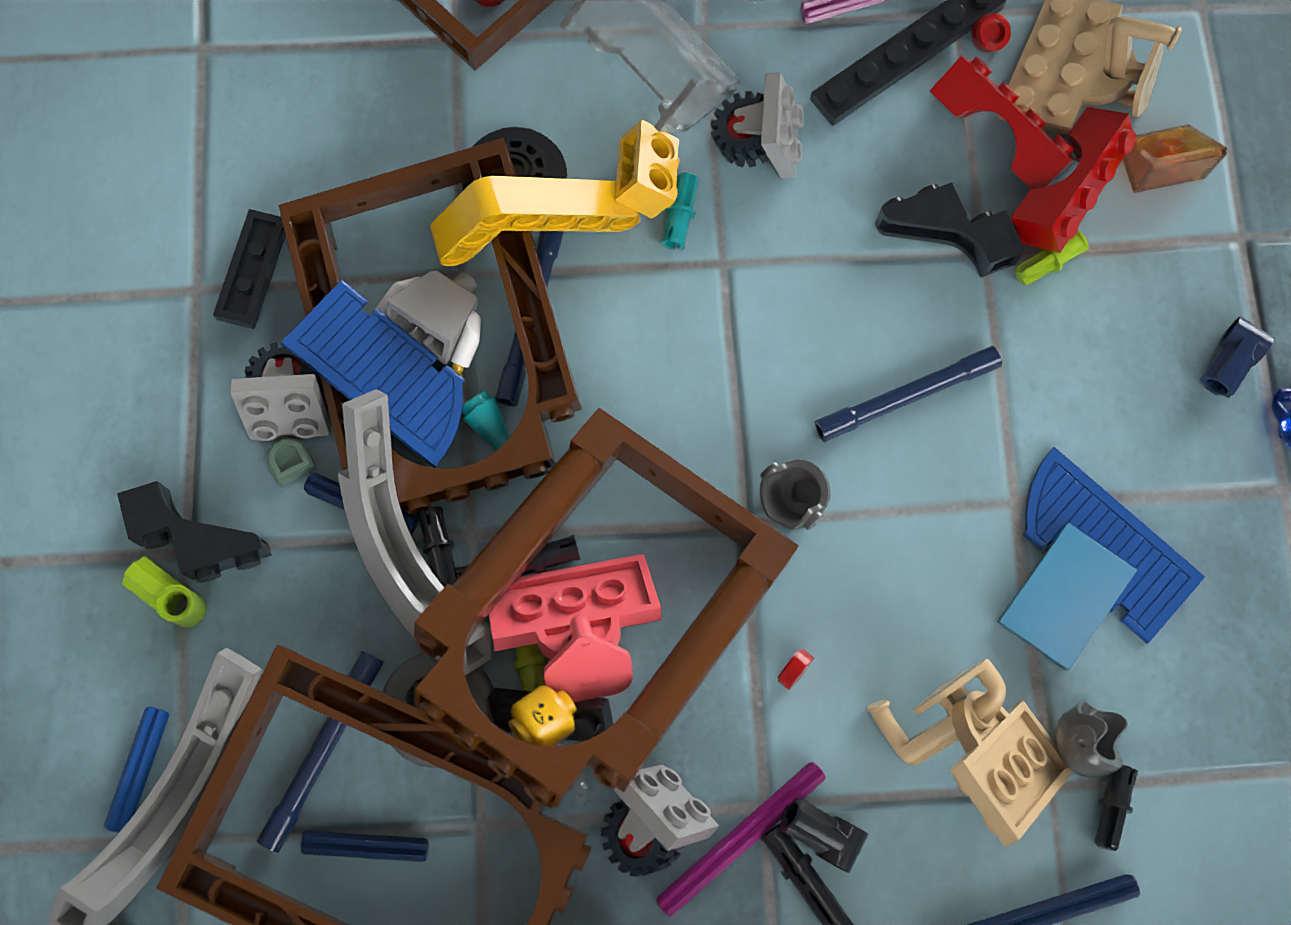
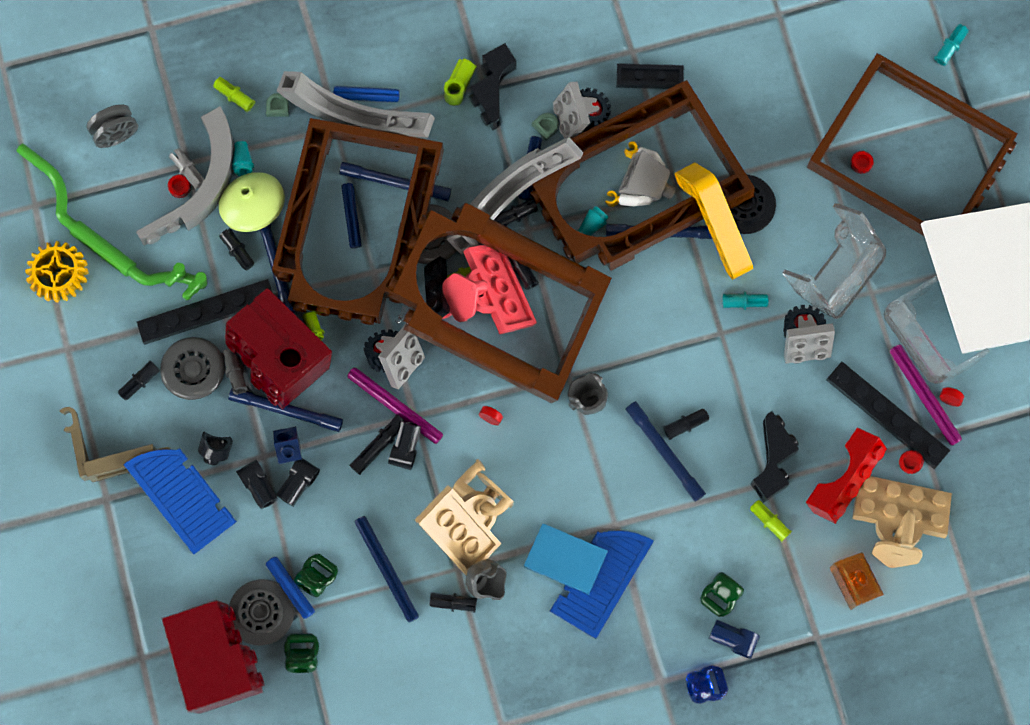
camera: 80 degrees right, 0 degrees up
(374, 353) = (605, 158): blue piece -> none
(543, 717) = (431, 279): yellow head -> none
(647, 170) = (762, 269): yellow brick -> none
(868, 350) = (686, 423): none -> black axle
(1054, 212) = (796, 513): red arch -> none
(1153, 352) = (724, 588): none -> dark green piece

